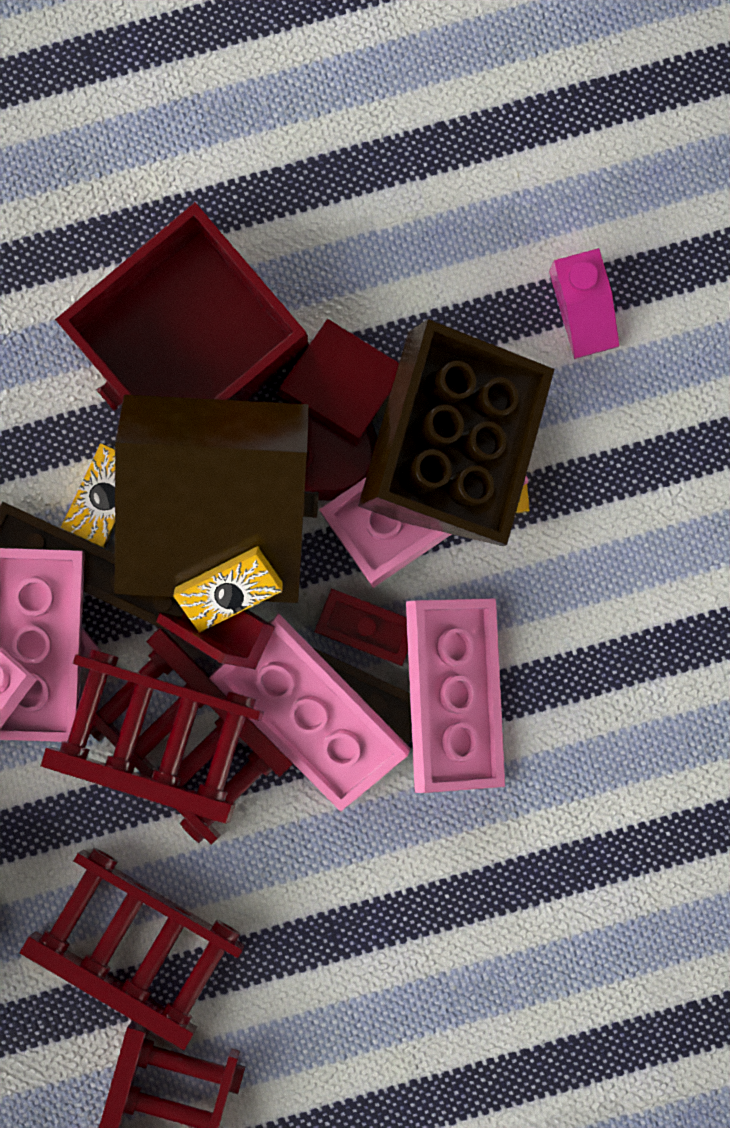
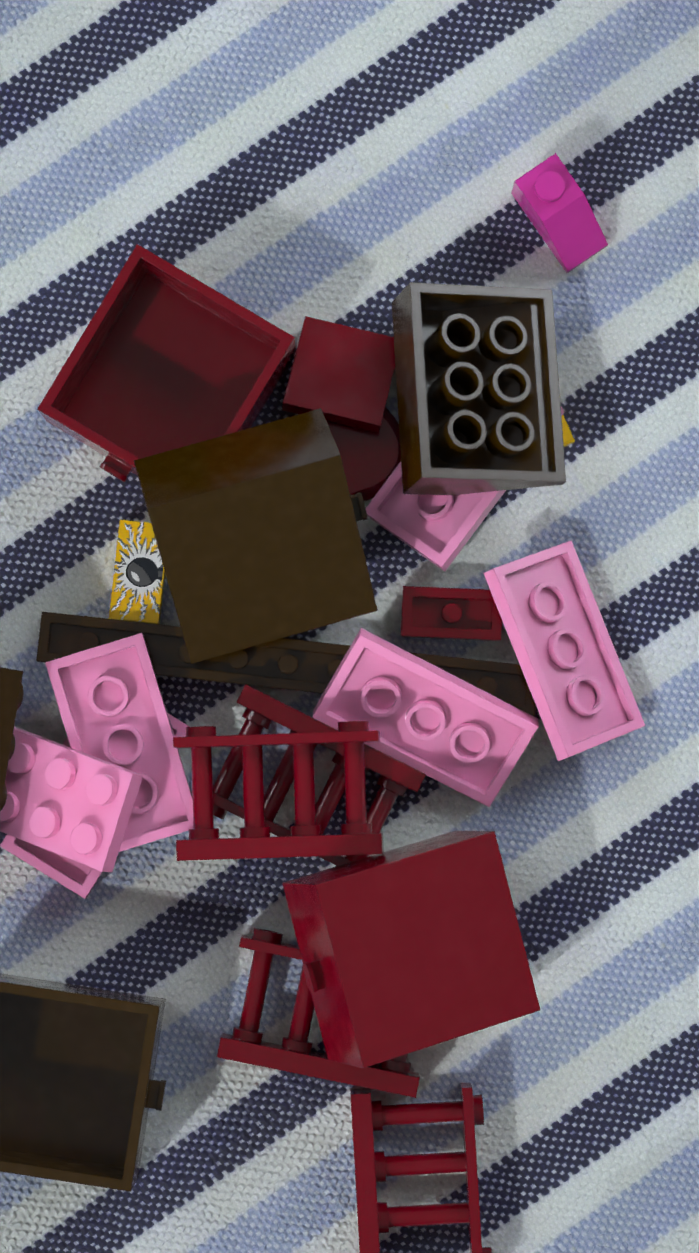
camera: 20 degrees left, 0 degrees up
(223, 916) = (411, 947): none -> dark red container
(228, 589) = (304, 619): tile -> none
(232, 642) = (311, 663): dark red panel -> none

